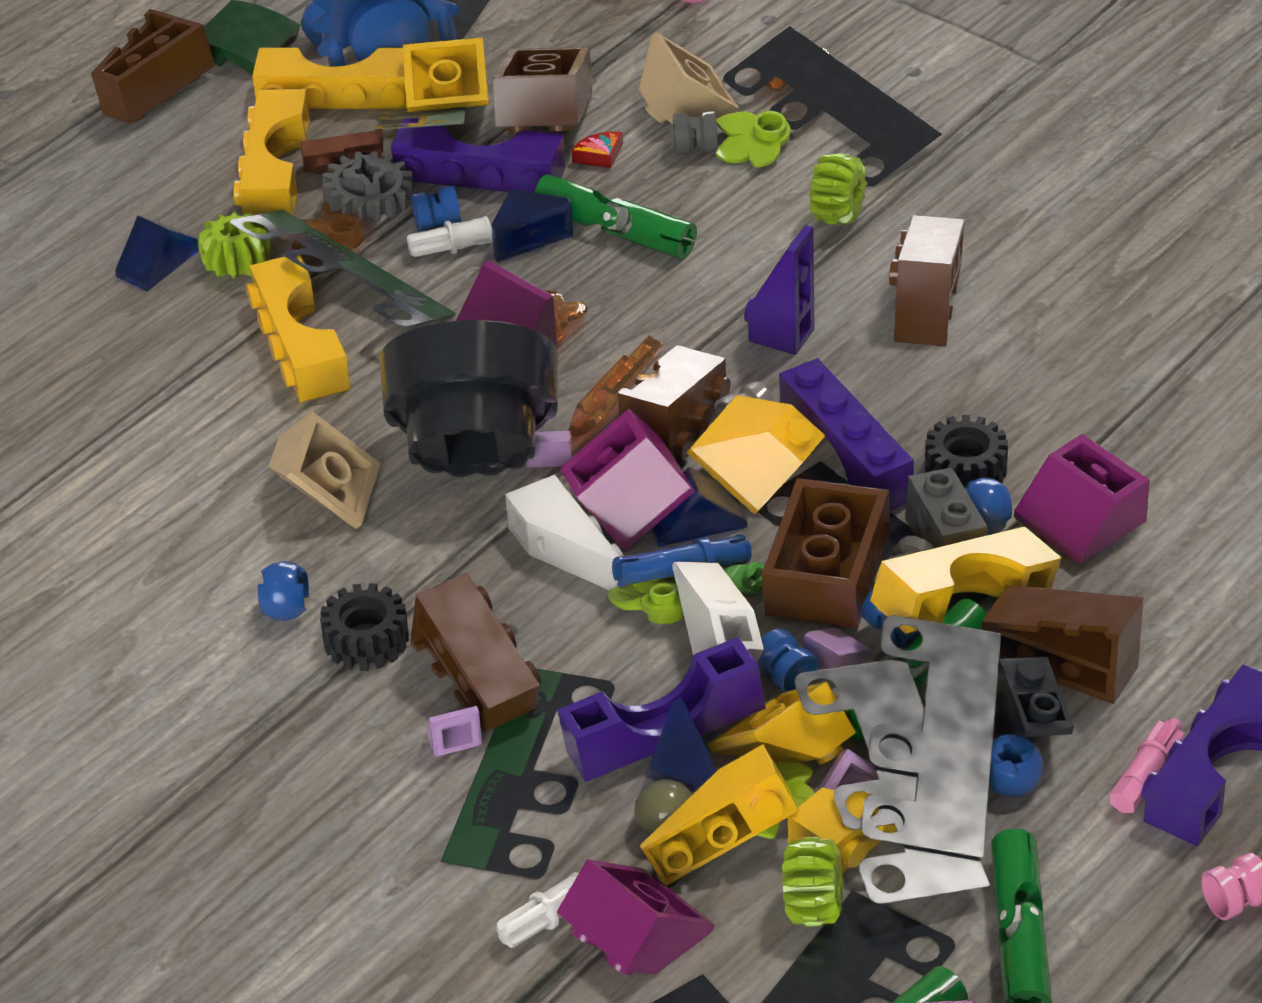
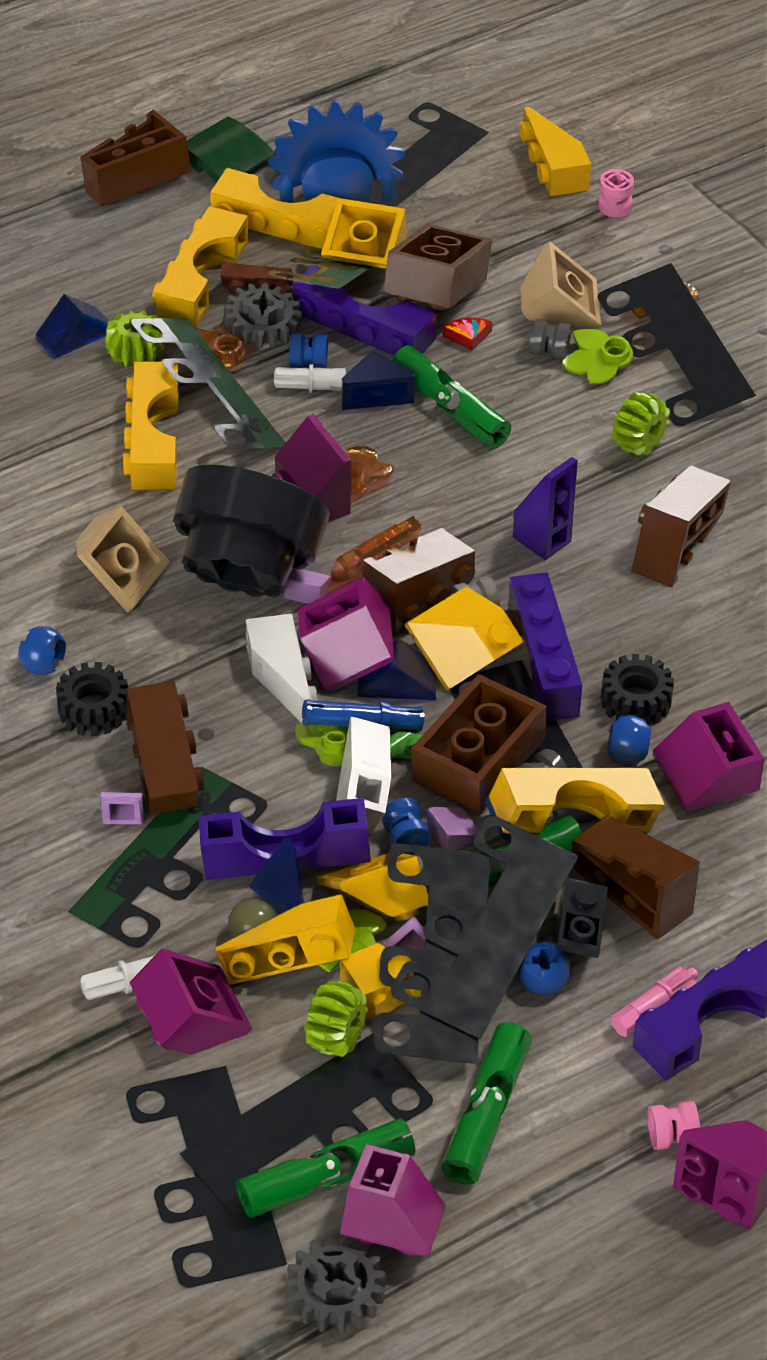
camera: 15 degrees right, 5 degrees up
(941, 509) = (589, 734): dark grey brick -> none

